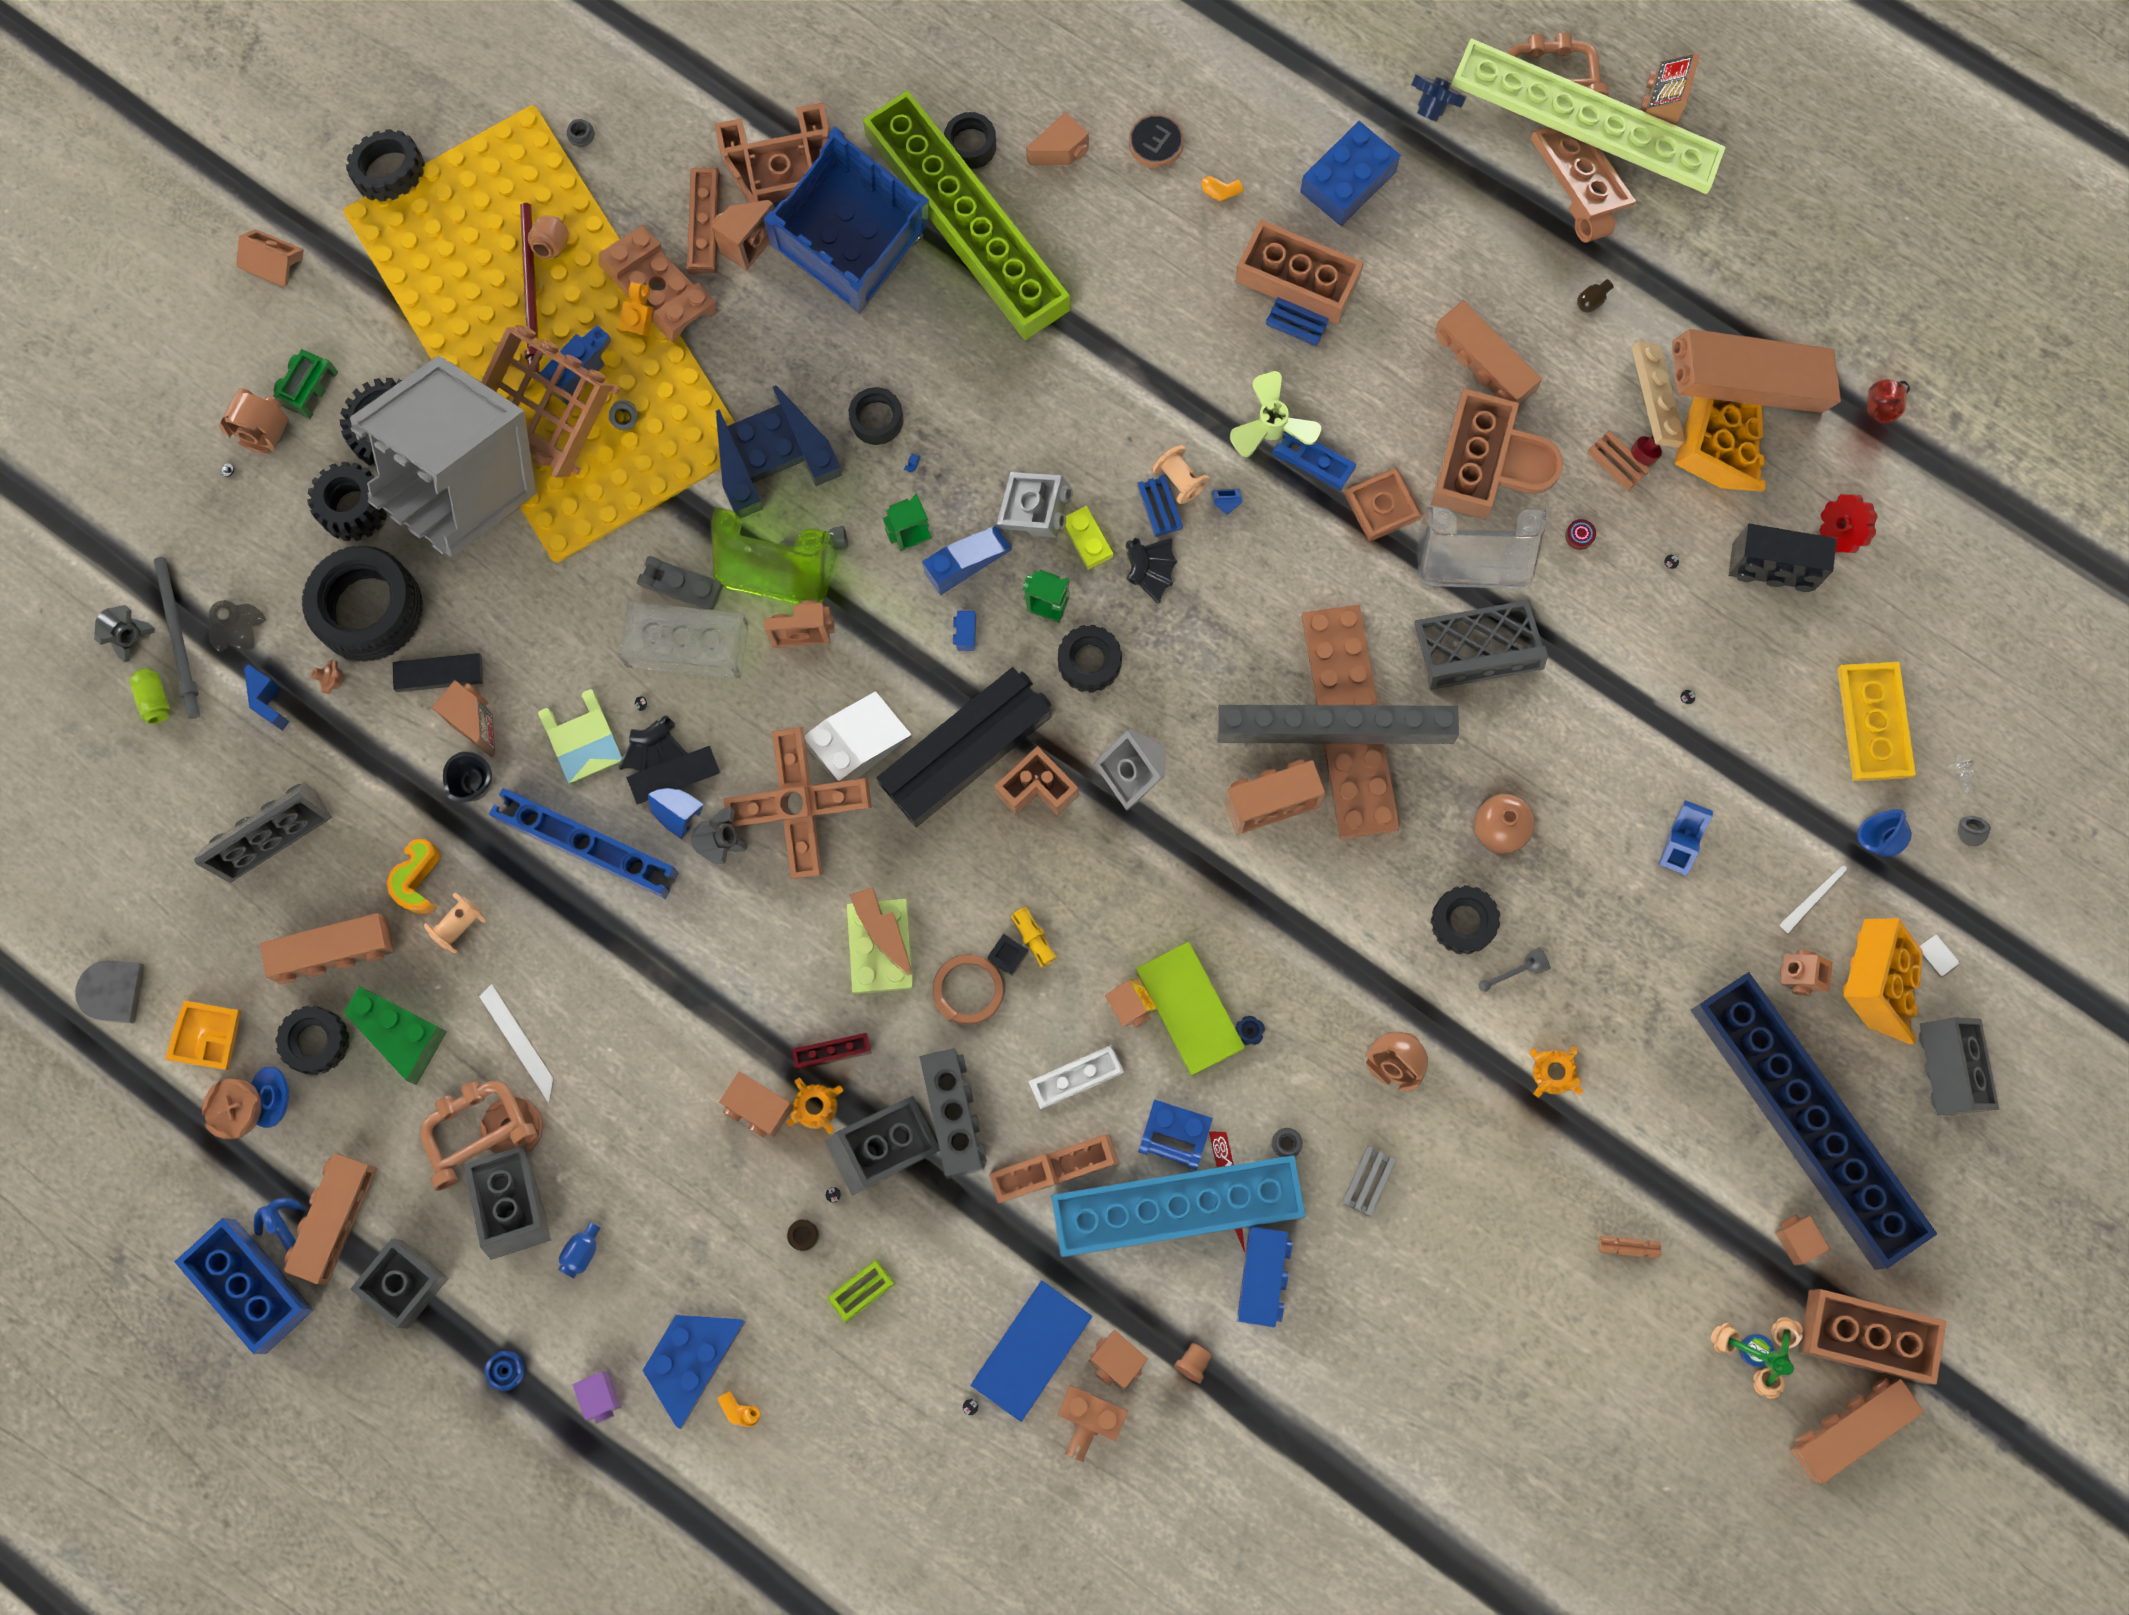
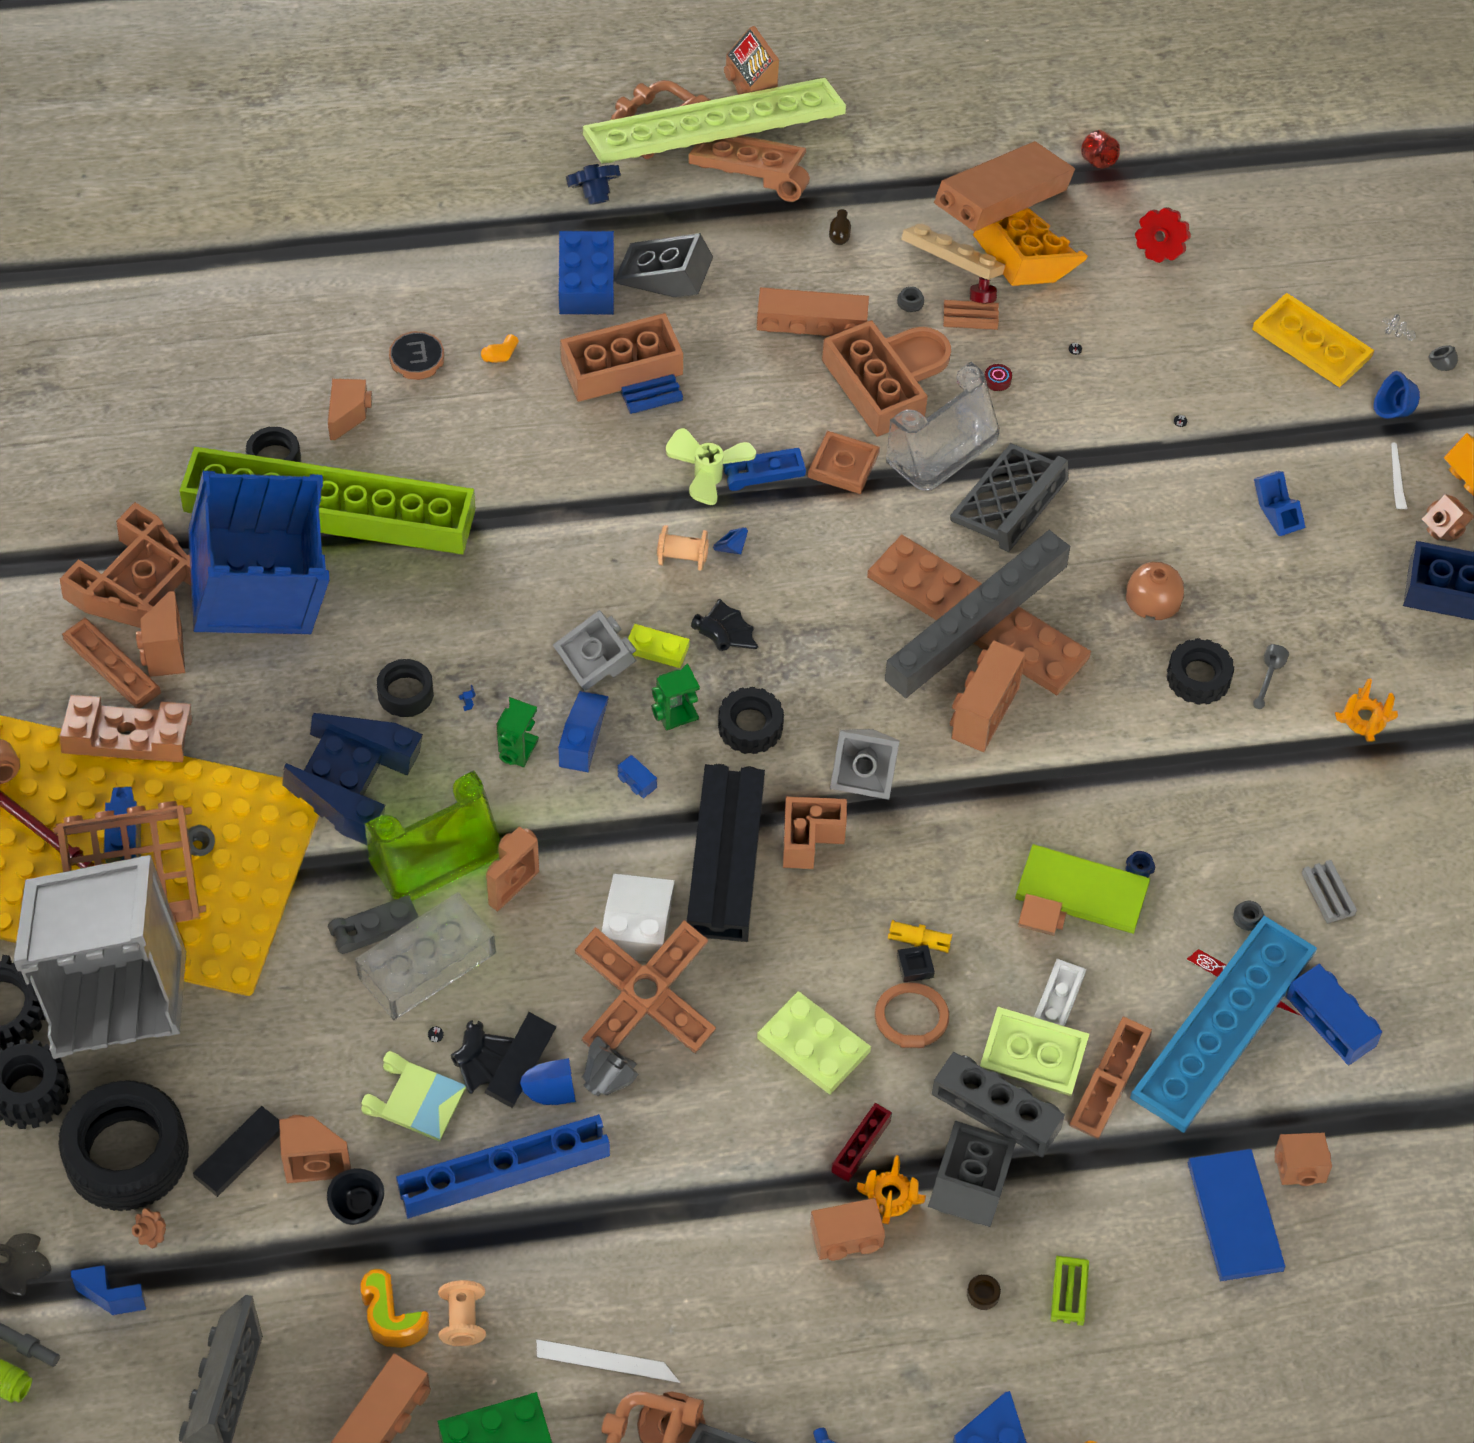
camera: 50 degrees left, 20 degrees down
(635, 313) = (135, 759): light orange plate -> none
(833, 1194) = (973, 1244): black piece -> none
(881, 928) = (810, 1018): nougat slope -> none
(970, 1407) = (1237, 1295): black piece -> none
(1016, 1099) = (1034, 1051): none -> yellowish green plate
(1091, 1418) = (1329, 1211): nougat brick -> none
(1142, 487) = (689, 580): blue tile -> none
(1179, 1125) = (1164, 971): blue plate -> none
(1194, 1363) = (1354, 1114): nougat piece -> none
(1399, 1059) = (1262, 793): nougat cylinder -> none
(1419, 218) = (666, 265): none -> dark grey slope
(1586, 401) = (910, 299): none -> dark grey plate
(1782, 557) = (1145, 285): black brick -> none

